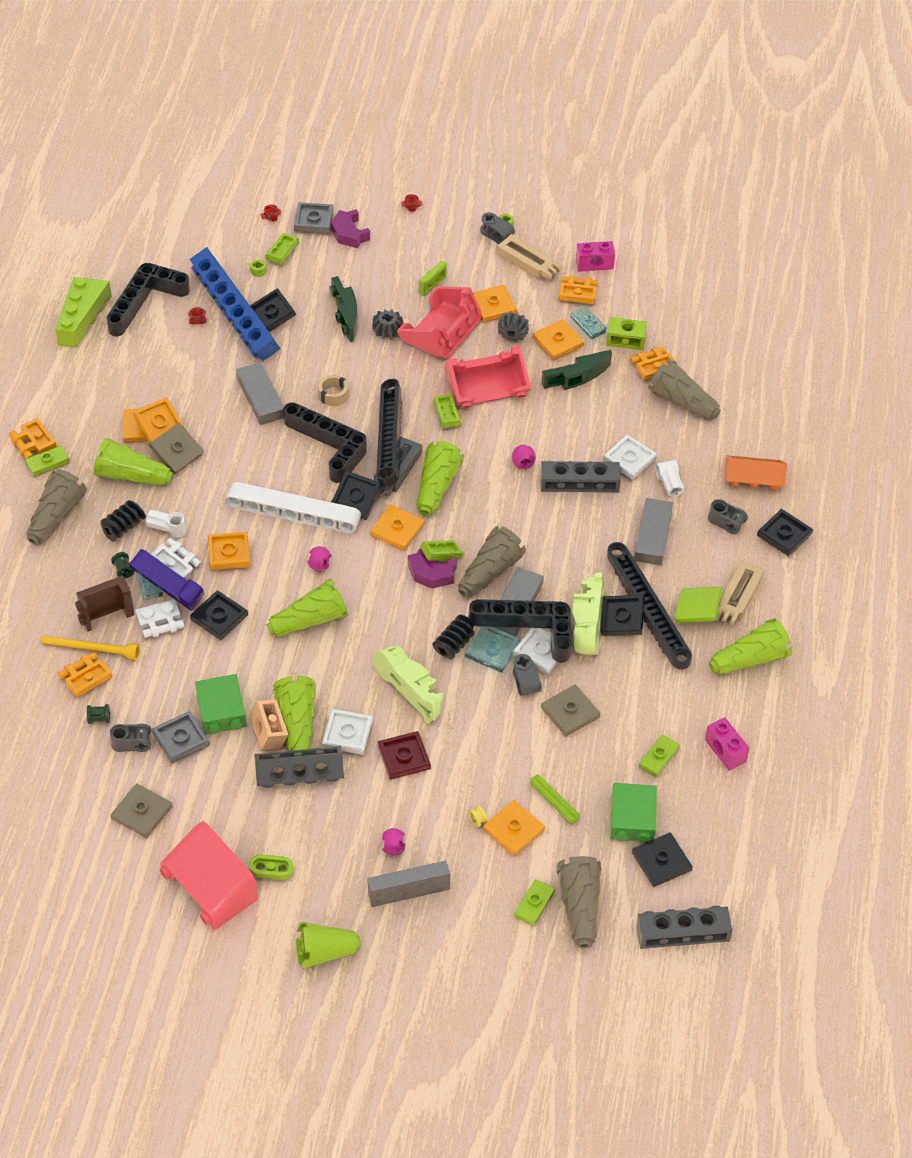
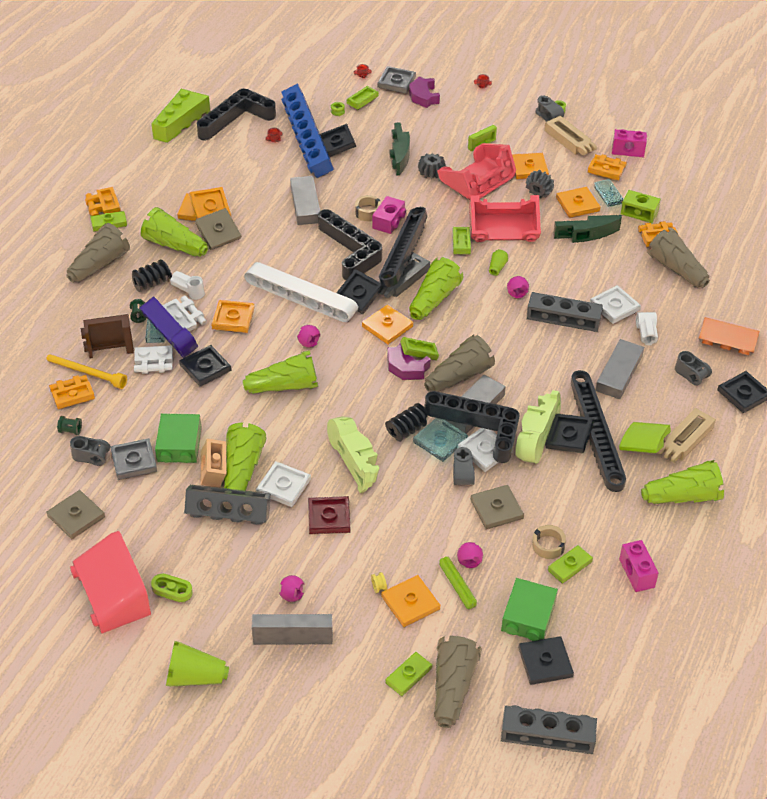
camera: 15 degrees right, 5 degrees down
(359, 395) = (388, 215): none -> dark pink brick
(493, 427) = (498, 261): none -> lime cone
(559, 768) = (470, 555): none -> dark pink piece
(632, 724) = (549, 530): none -> tan piece

